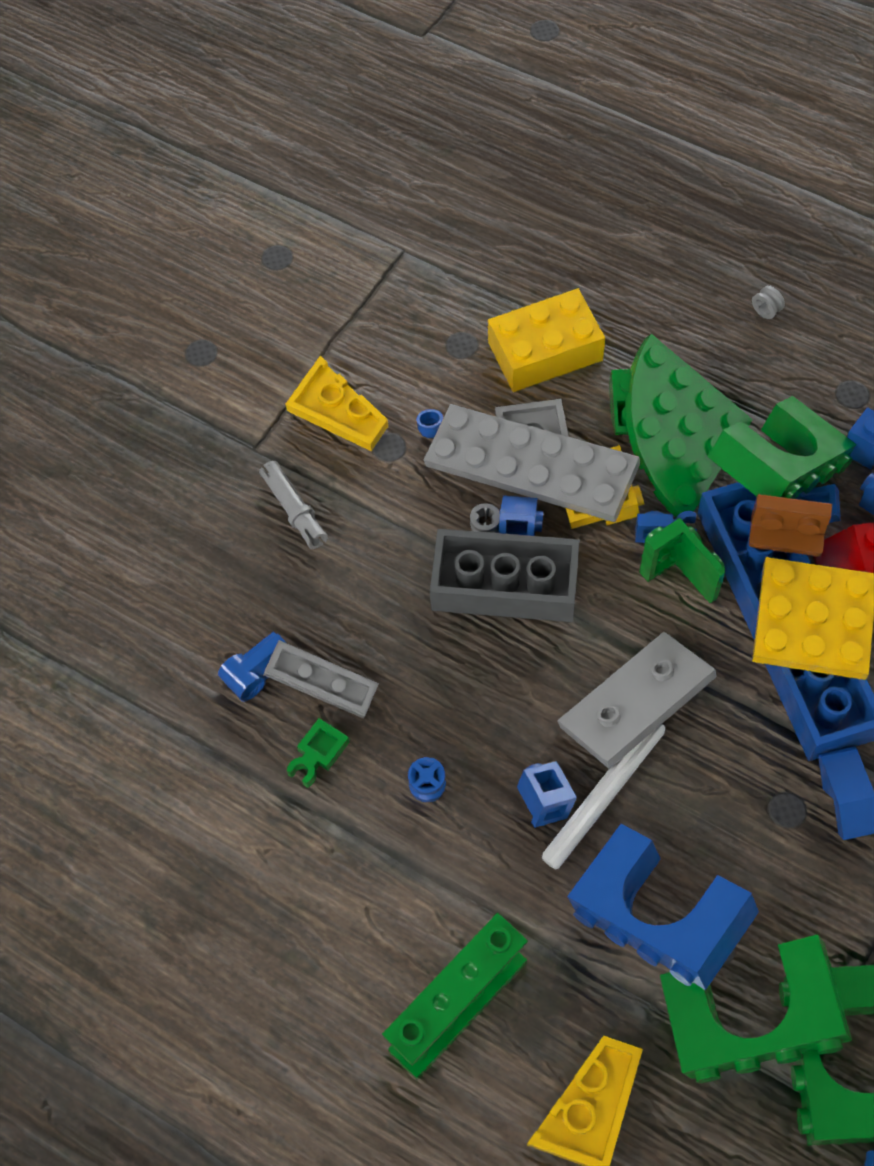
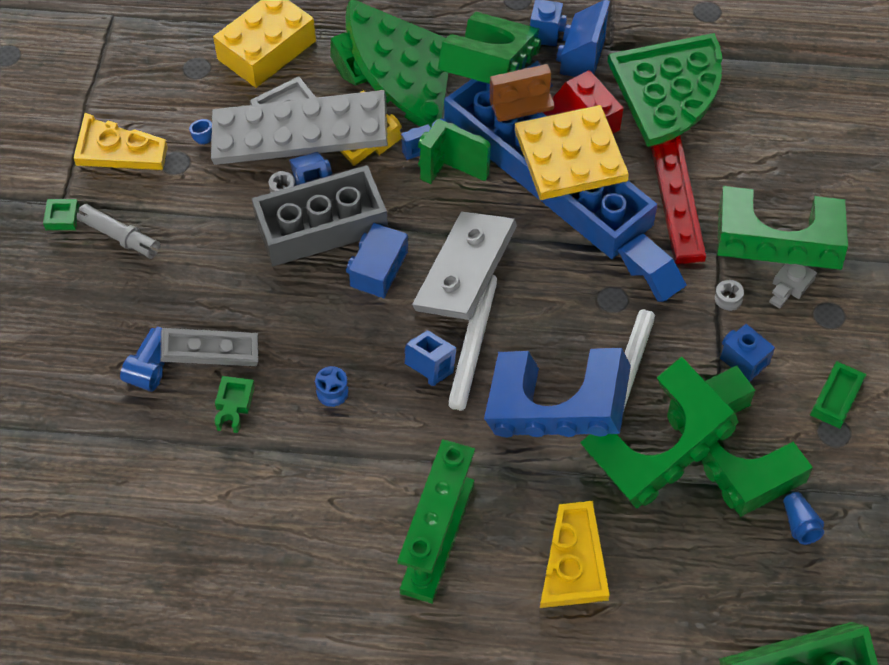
camera: 30 degrees left, 5 degrees down
(245, 462) = (61, 214): none -> green plate
(544, 652) = (377, 260): none -> brick
(783, 884) = (637, 344): none -> white axle

